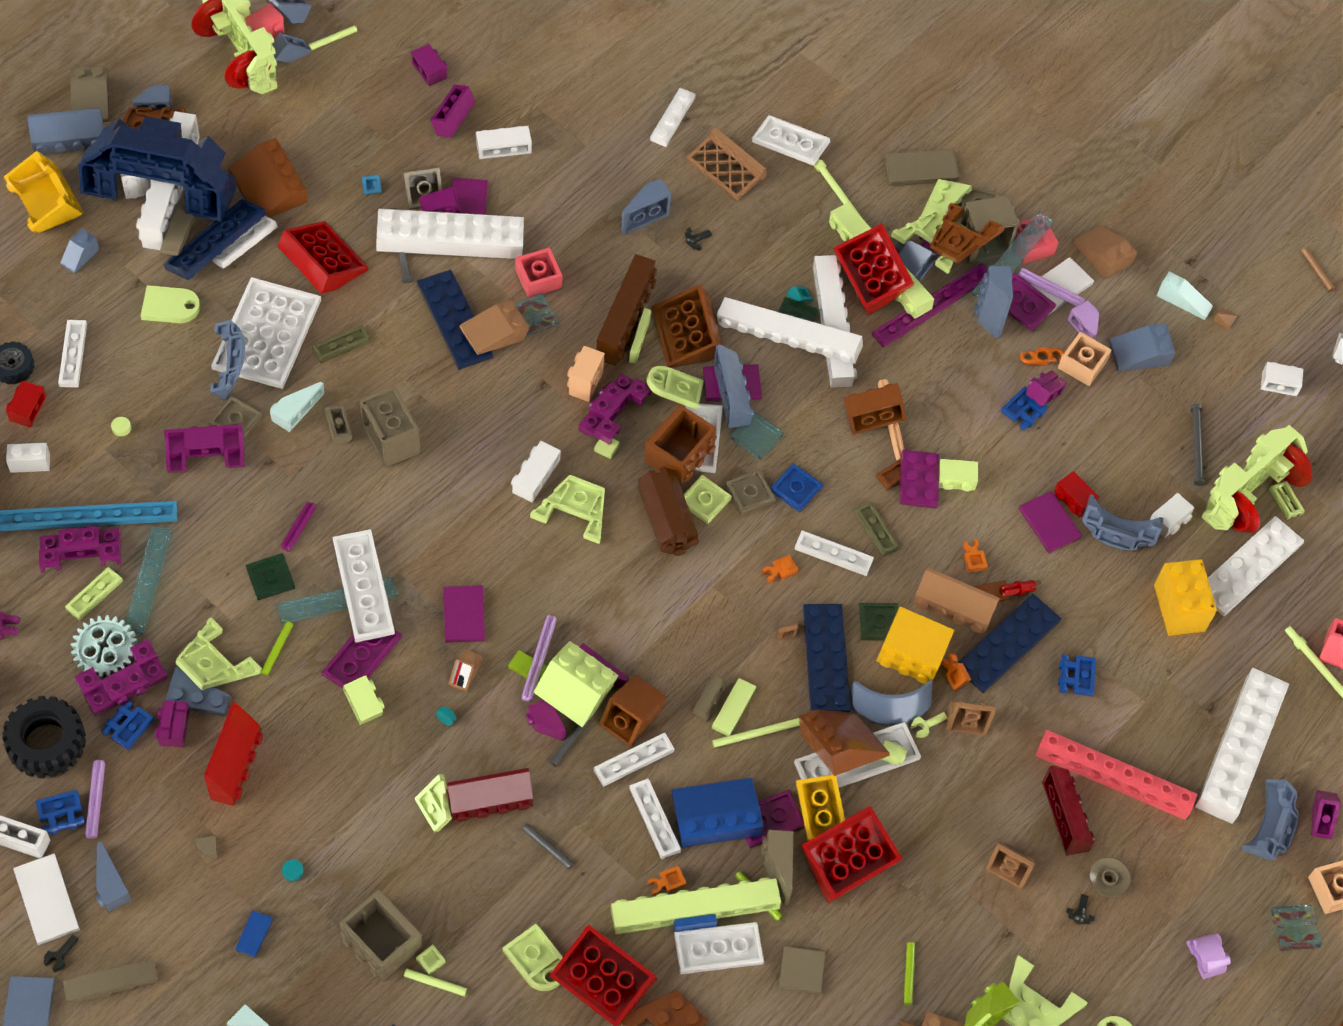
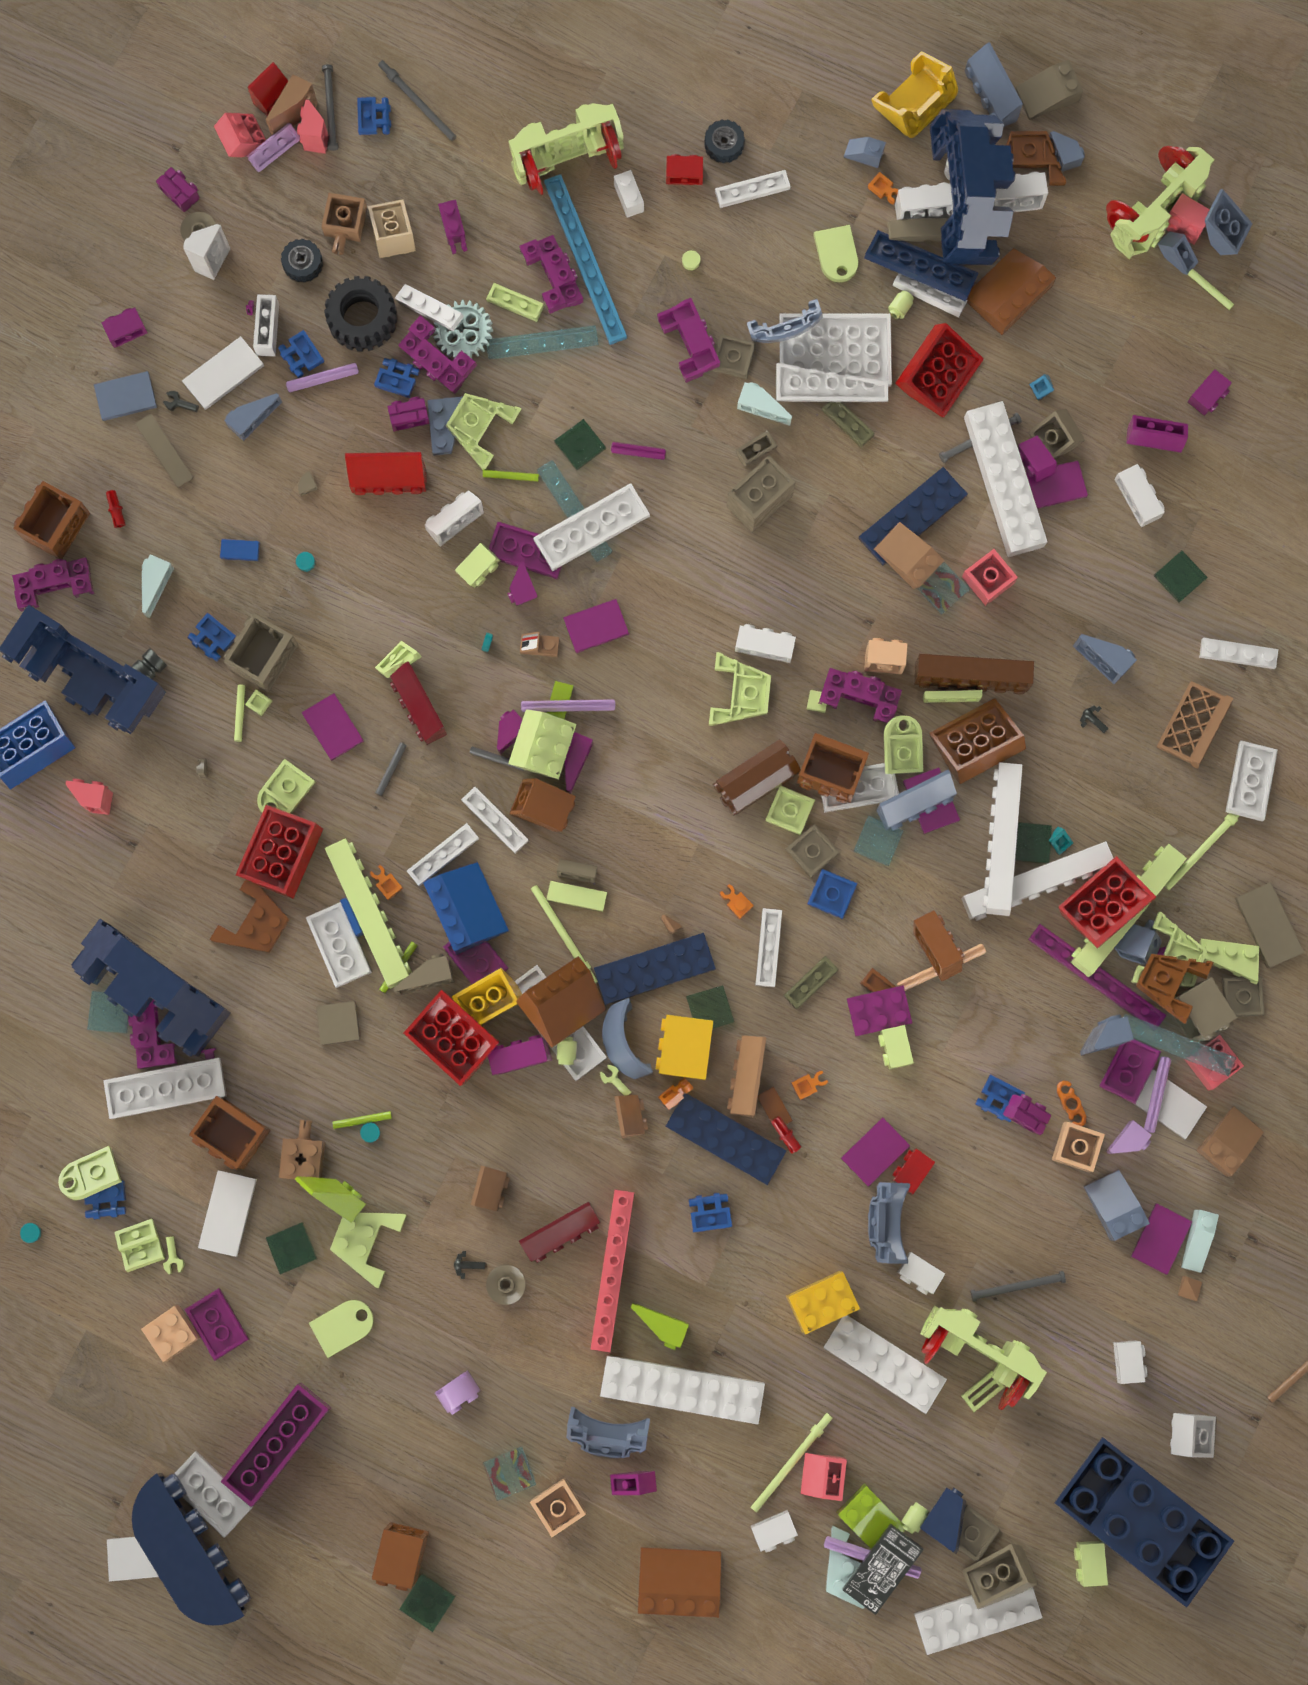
camera: 80 degrees right, 20 degrees up
(67, 668) = (429, 307): none -> white plate
(121, 249) = (882, 187): none -> orange plate
(245, 266) = (901, 305): none -> yellowish green brick
(296, 357) = (811, 385): none -> white wing
(302, 708) = (454, 517): none -> white slope
(339, 981) = (216, 632): none -> blue plate
(399, 665) = (521, 587): none -> magenta slope
(483, 891) = (332, 727): none -> magenta tile
(588, 137) = (1180, 576): none -> clear green tile
(884, 796) = (519, 1055): none -> magenta brick
(924, 968) = (370, 1132): none -> teal tile
(1183, 327) = (1161, 1239): none -> magenta tile
(1185, 737) = (665, 1327): none -> lime slope

